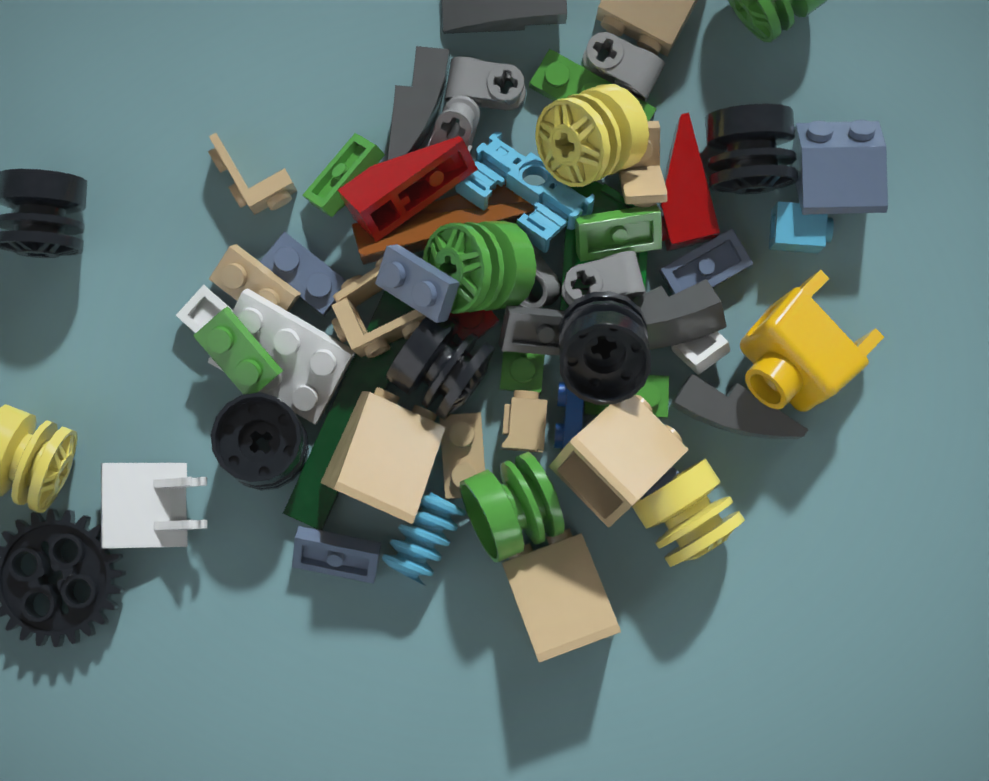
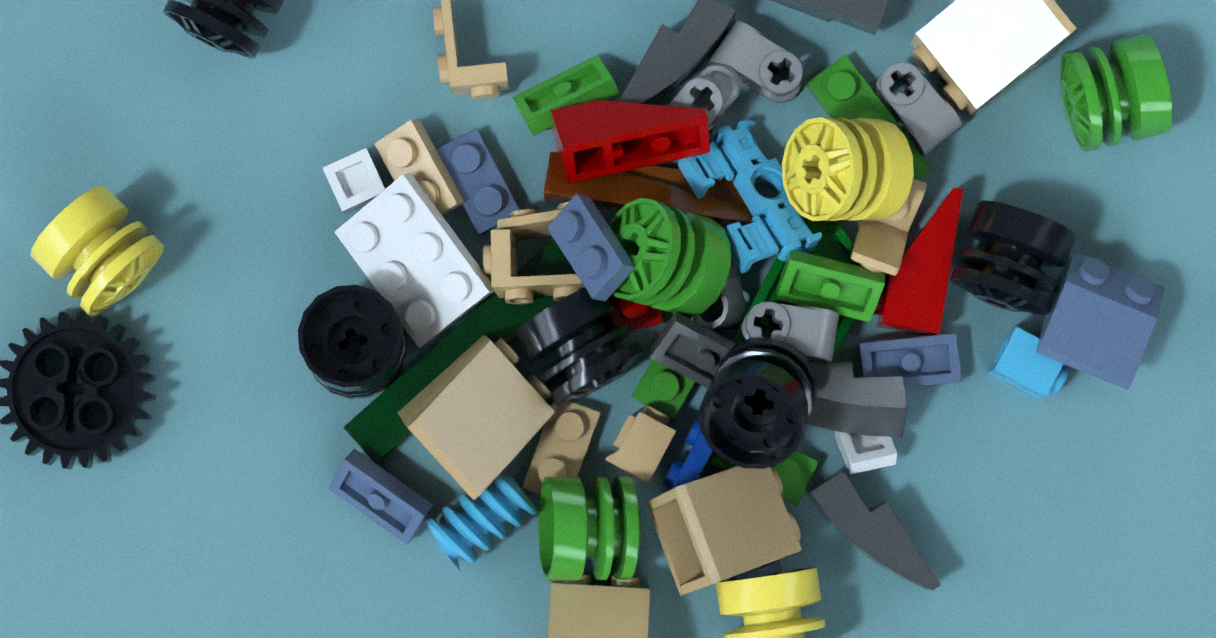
camera: 25 degrees right, 0 degrees up
(146, 505) = (203, 355): white plate -> none
(237, 352) = (370, 237): bright green plate -> none
(801, 351) = (970, 499): yellow piece -> none

